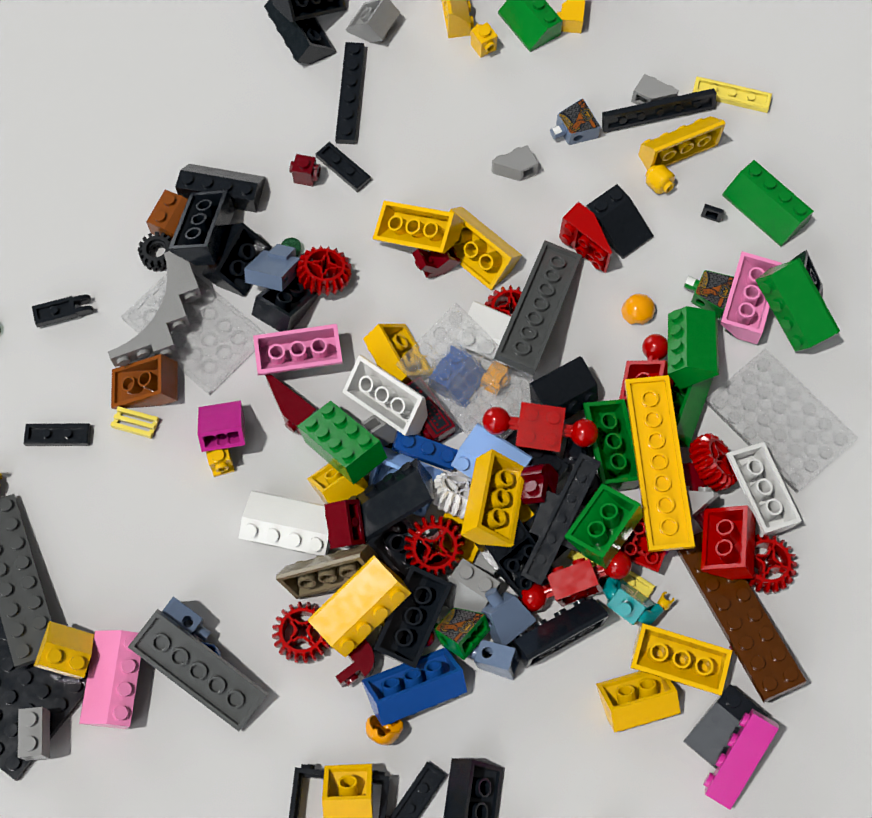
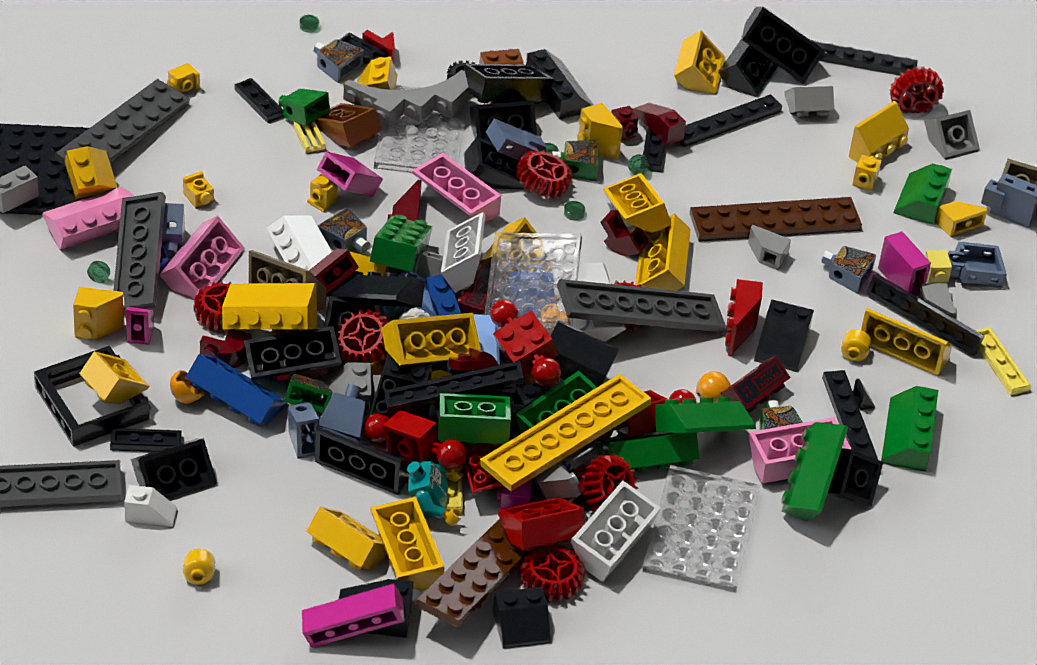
camera: 50 degrees right, 25 degrees down
(57, 337) = (338, 59): none -> torso
(73, 288) = (384, 44): none -> red slope
(100, 405) = (304, 105): none -> green torso
(115, 325) = (380, 74): none -> yellow slope
(146, 568) = (198, 189): none -> yellow brick
(184, 714) = (98, 271): none -> clear green tile
(232, 614) = (202, 258): none -> bright pink slope
(246, 754) = (97, 312): none -> yellow slope
(274, 68) = (699, 64): none -> yellow slope
(279, 719) = (139, 325): none -> dark pink slope
(281, 472) = (345, 232): none -> torso
(308, 195) = (601, 125): none -> yellow slope
(322, 229) = (581, 158): none -> torso
(324, 142) = (662, 122): none -> dark red slope
(358, 192) = (638, 164): none -> clear green tile
(373, 274) = (574, 210): none -> clear green tile
(482, 138) = (779, 217): none -> reddish brown plate
(606, 87) = (903, 263): none -> dark pink brick
(615, 65) = (940, 266): none -> light yellow brick
(629, 38) = (976, 266): none -> sand blue piece
(662, 279) = (758, 384): none -> brick
(727, 235) = (848, 412): none -> black plate
(800, 618) = (522, 617): none -> black slope

